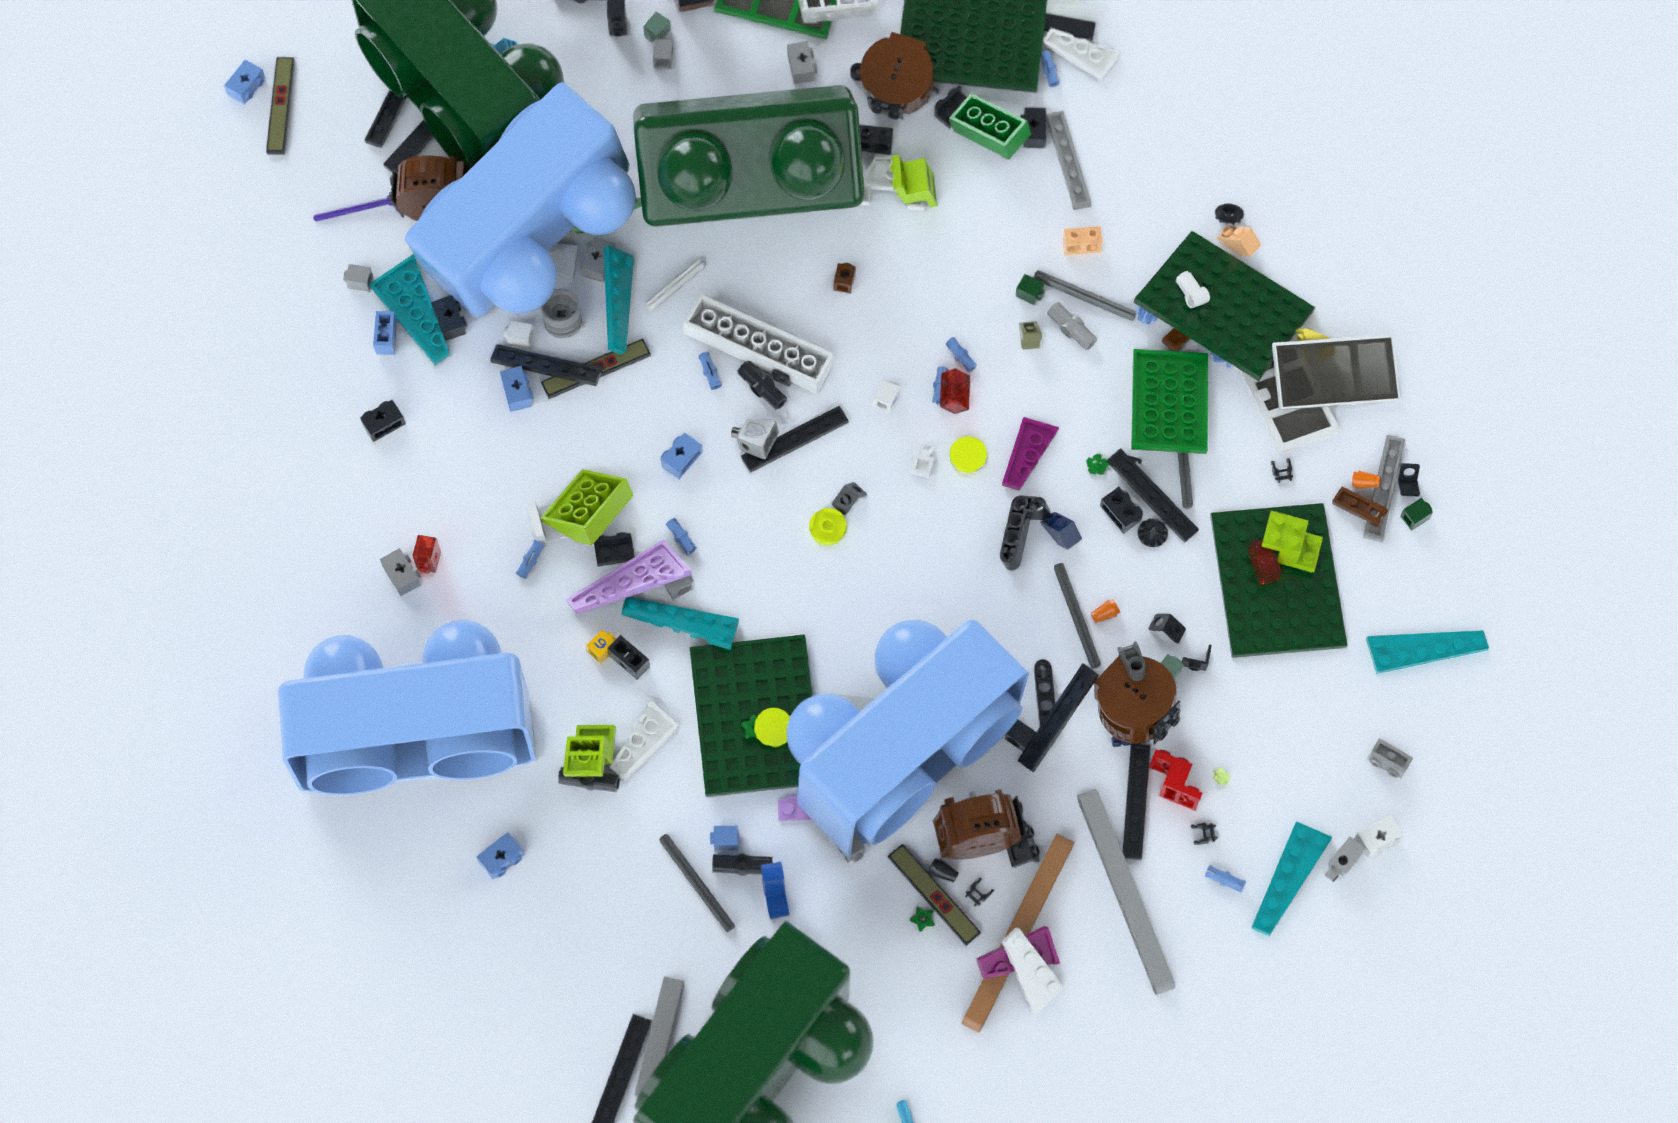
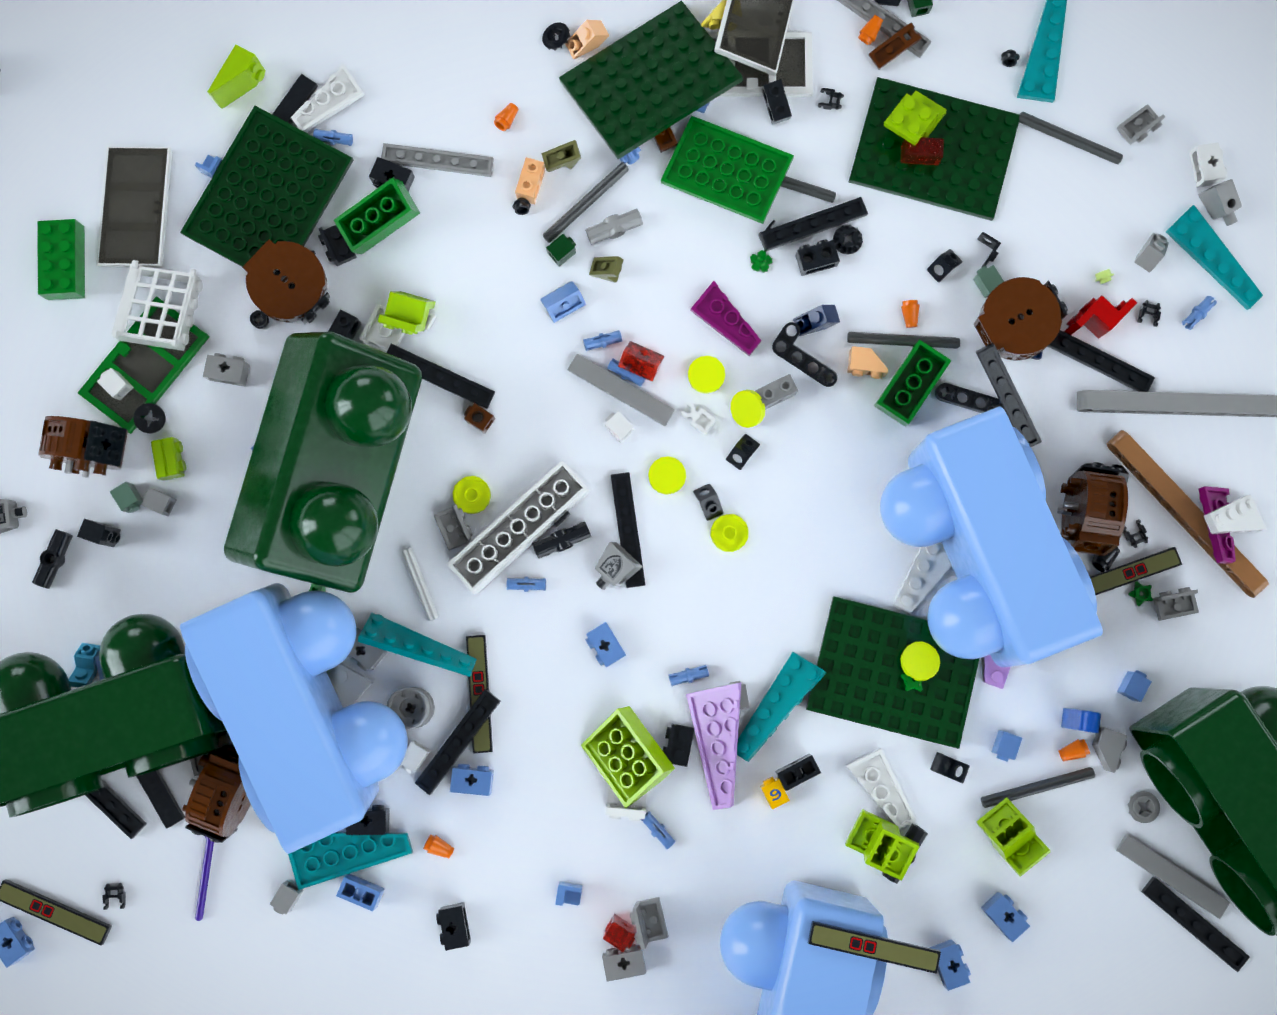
camera: 65 degrees left, 15 degrees up
(307, 140) = (120, 895): none -> black piece
(444, 504) = (568, 893): none -> medium blue panel
(444, 575) = (649, 921): none -> light grey bracket
(447, 381) = (437, 846): none -> orange cone
(497, 722) = (874, 947): none -> olive tile
(564, 880) = (995, 910): none -> medium blue brick
(640, 867) = (1013, 837): none -> lime bracket
(684, 790) = (947, 767): none -> black bracket
(703, 46) = (168, 458): none -> lime brick
(710, 979) = (1152, 805): none -> light grey gear
(726, 14) = (144, 410): none -> black gear
(729, 863) = (1032, 751): black piece -> none
(736, 291) = (453, 527): none -> light grey bracket
(745, 904) = (1075, 750): none -> orange cone
(759, 927) = (1108, 747): none -> light grey slope
(772, 298) = (471, 494): none -> neon yellow tile
(829, 937) = (1134, 686): none -> medium blue brick
(859, 454) = (667, 475): none -> neon yellow tile
(868, 233) = (446, 379): none -> black tile
(911, 509) = (744, 448): none -> black bracket
(922, 387) = (621, 389): none -> light grey tile
(924, 950) = (1176, 604): none -> light grey bracket
(949, 497) = (747, 408): none -> neon yellow tile
(976, 517) = (777, 391): none -> light grey brick
(982, 309) = (563, 301): none -> medium blue panel
(1036, 631) = (912, 383): none -> green brick
(1039, 586) = (865, 362): none -> light nougat slope
(1055, 242) = (521, 206): none -> black plate
(1115, 256) = (561, 156): none -> olive slope
(1132, 658) = (992, 306): dark grey piece -> none
(1133, 200) = (505, 118): none -> orange cone
(1193, 292) = (637, 99): white piece -> none
(1253, 420) = (776, 102): none -> black brick
(1265, 812) = (1152, 252): none -> light grey slope
(1346, 700) = (1070, 138): none -> dark grey axle
(1400, 616) = (1009, 58): none -> black plate

